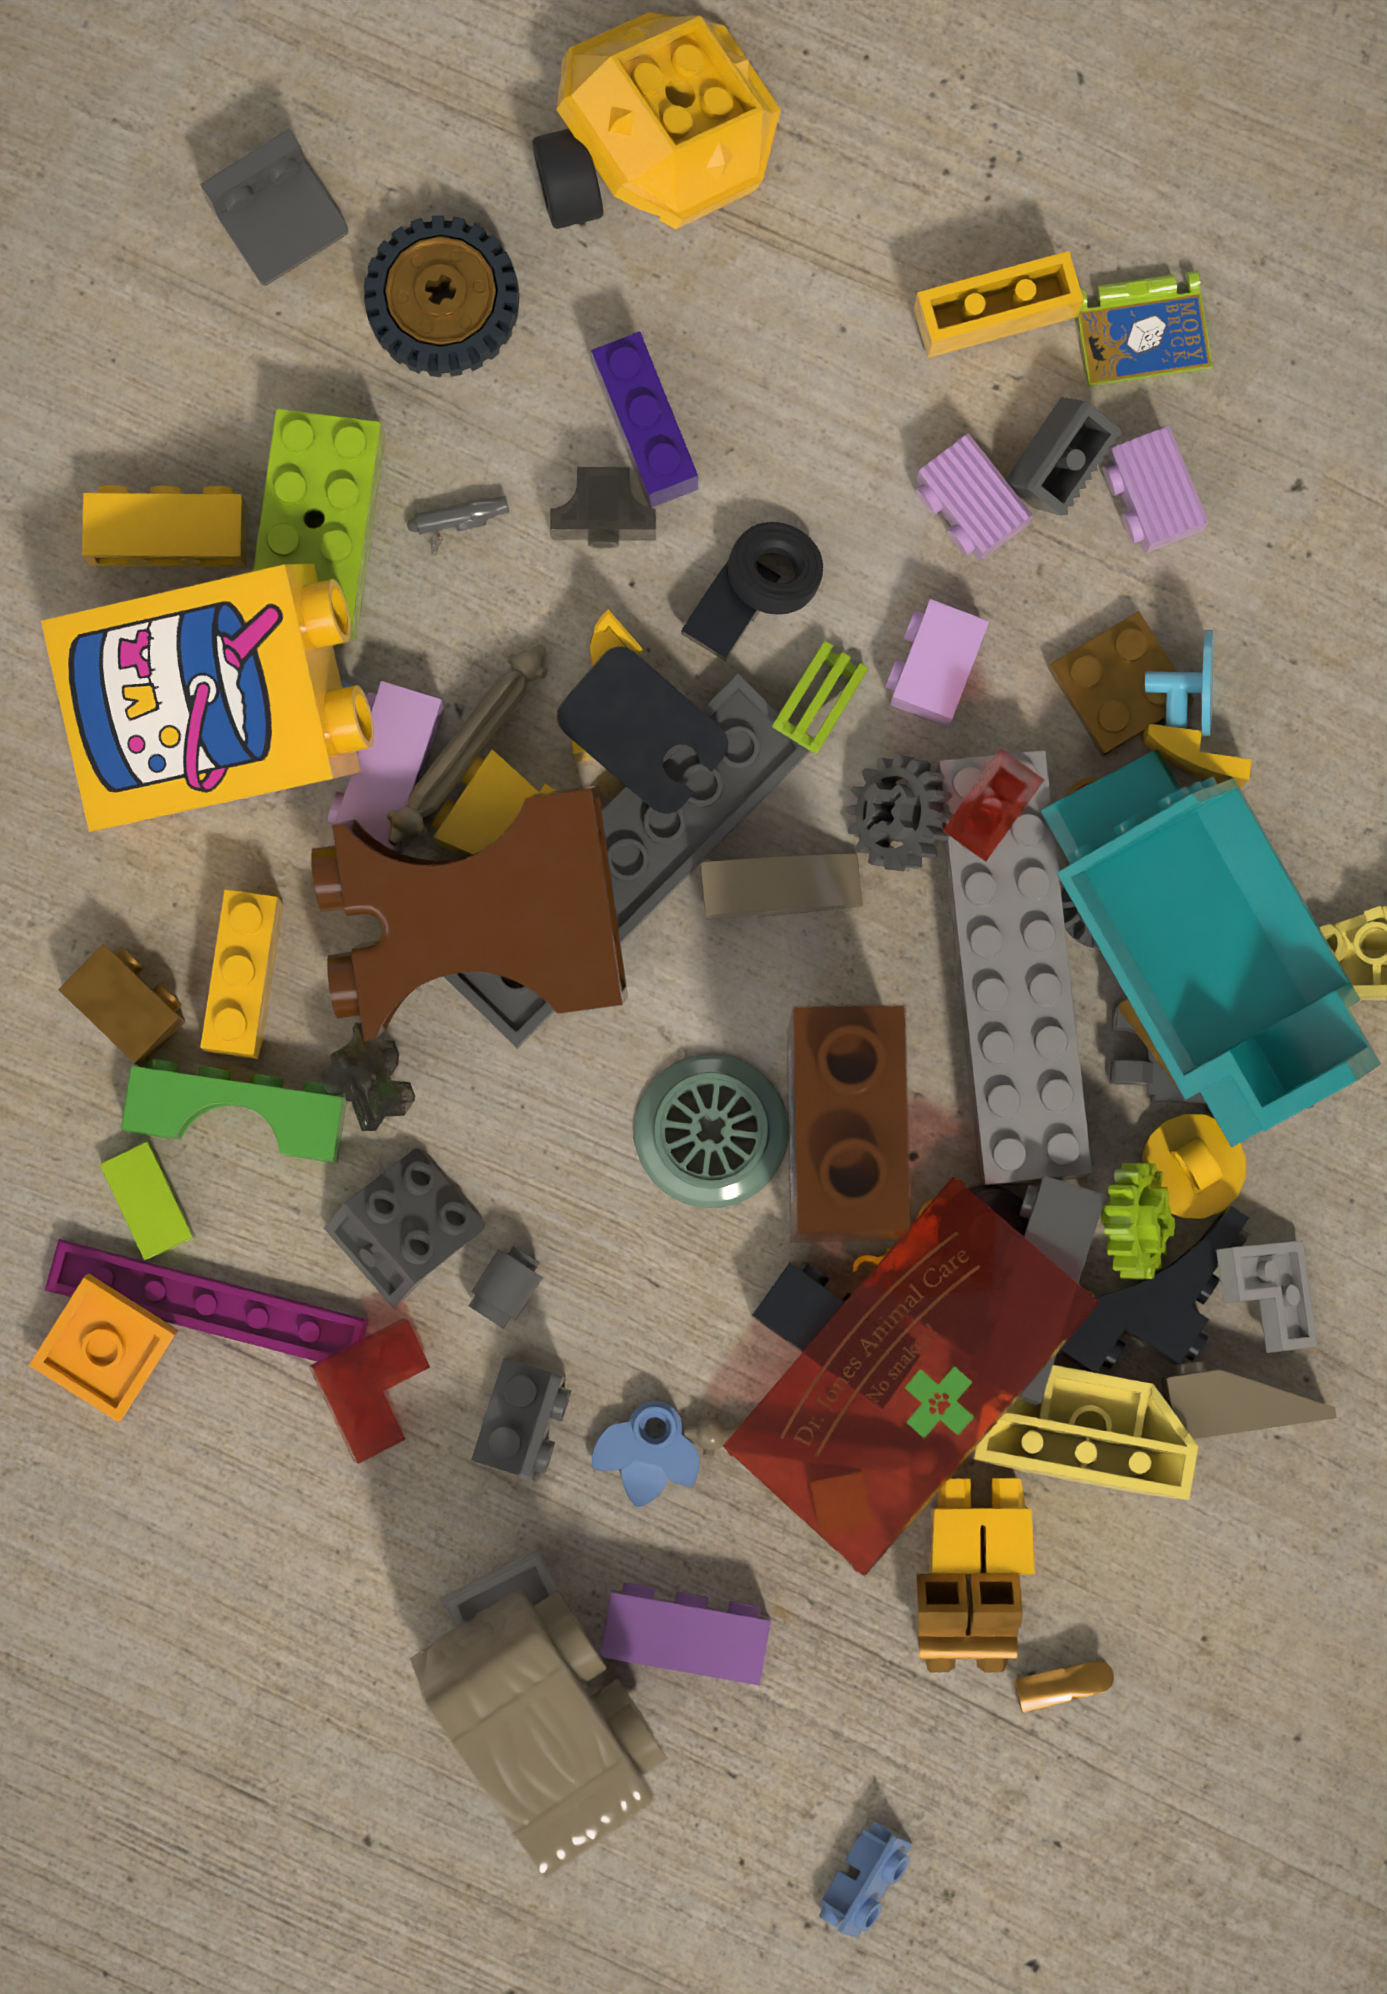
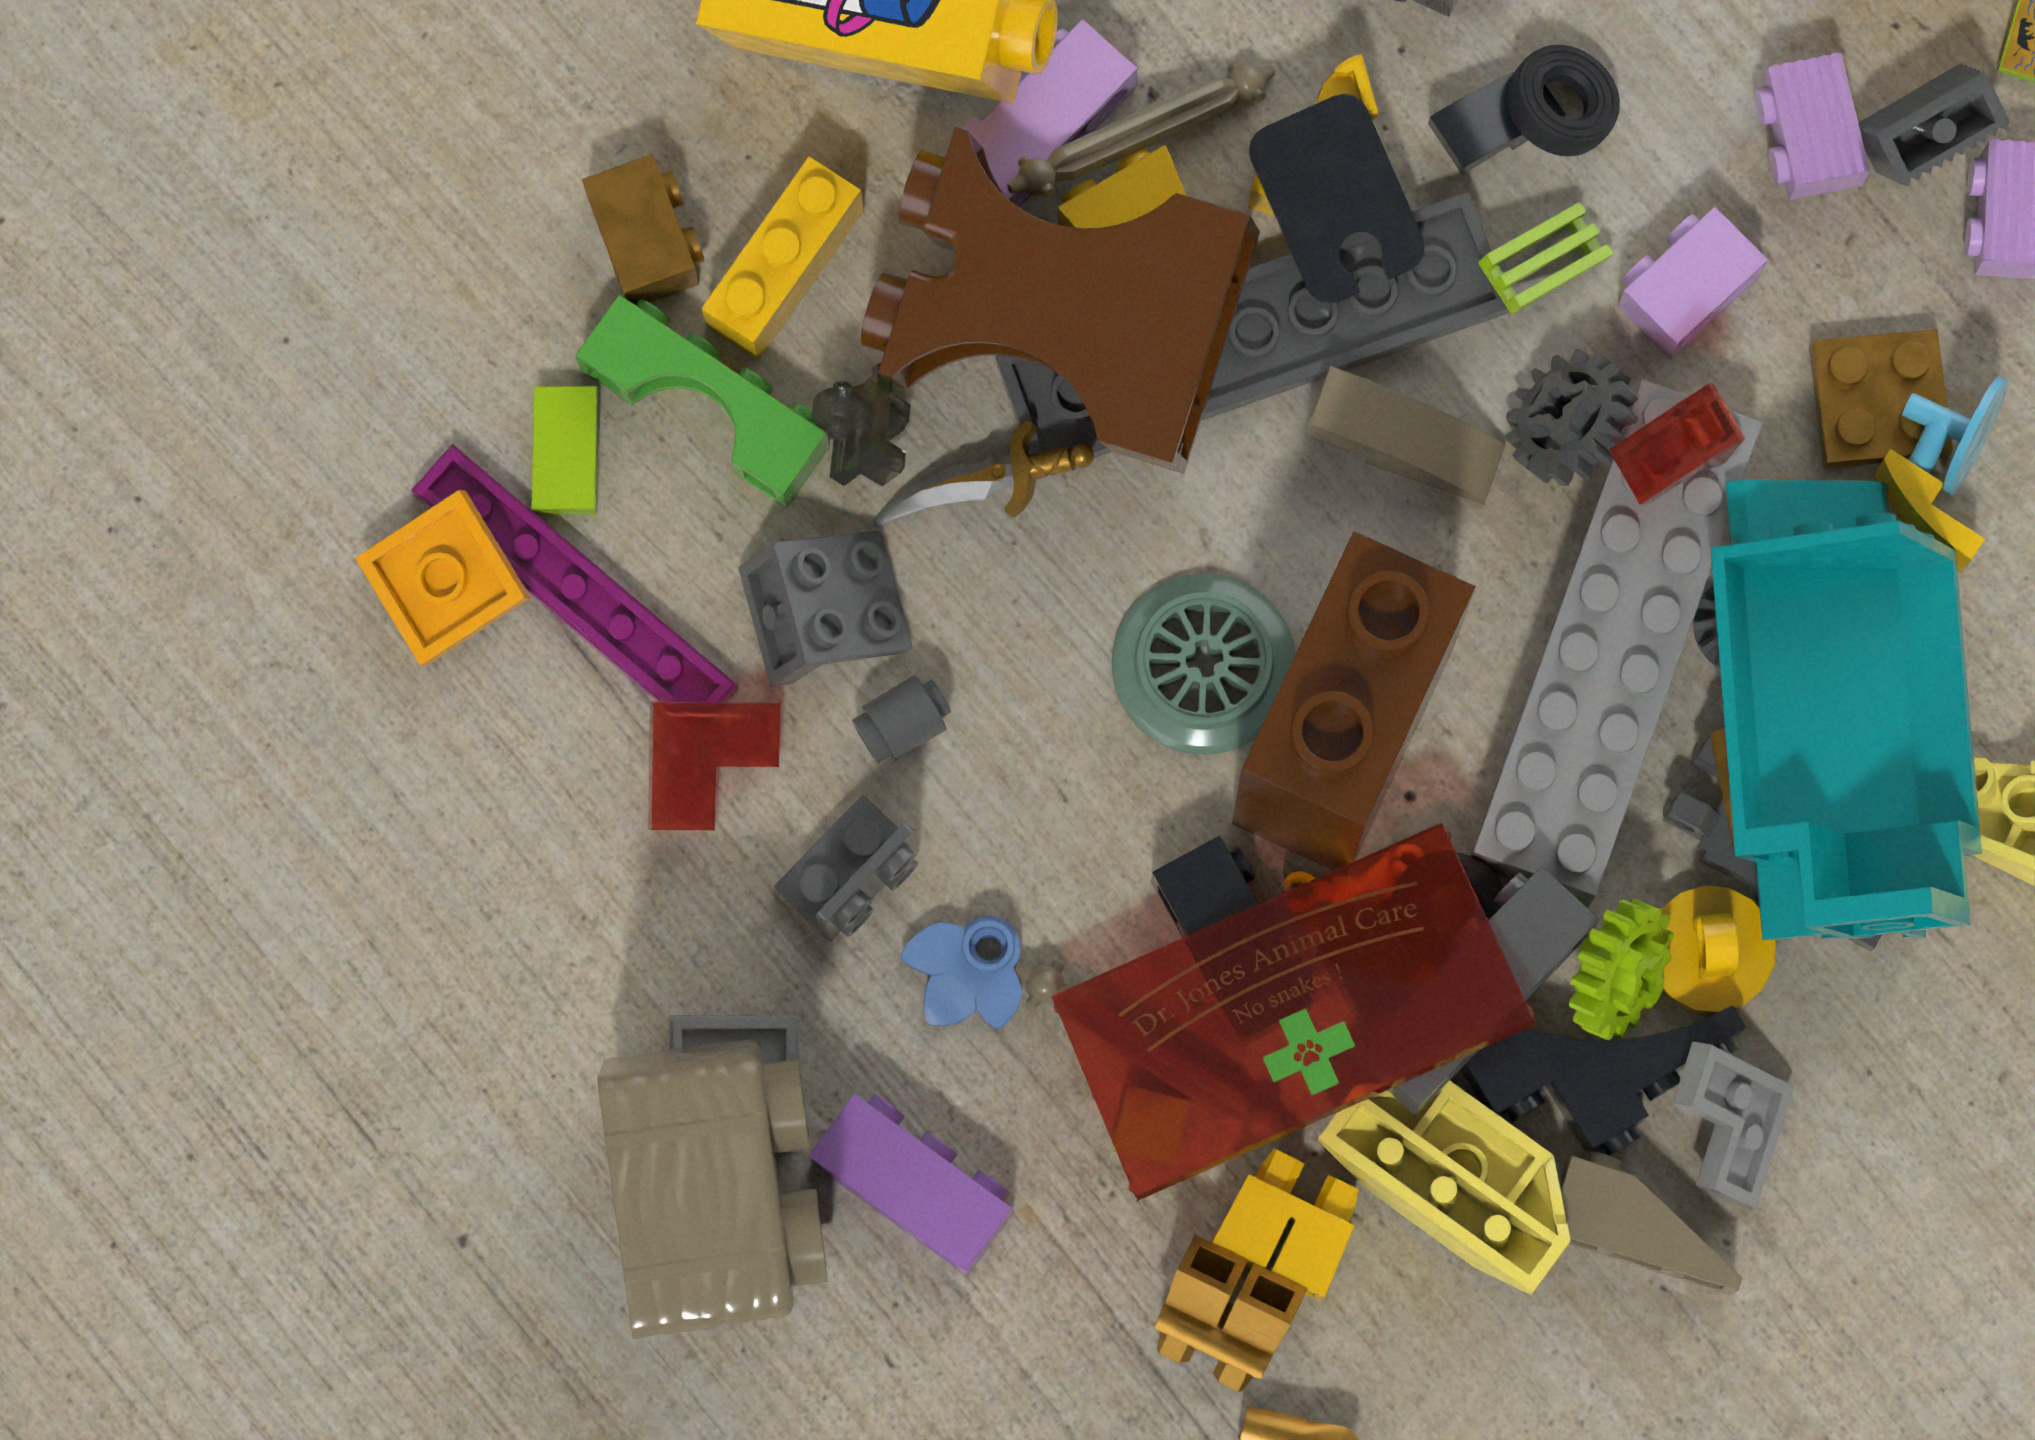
camera: 30 degrees right, 5 degrees down
(478, 1071) = (982, 479): none -> piece

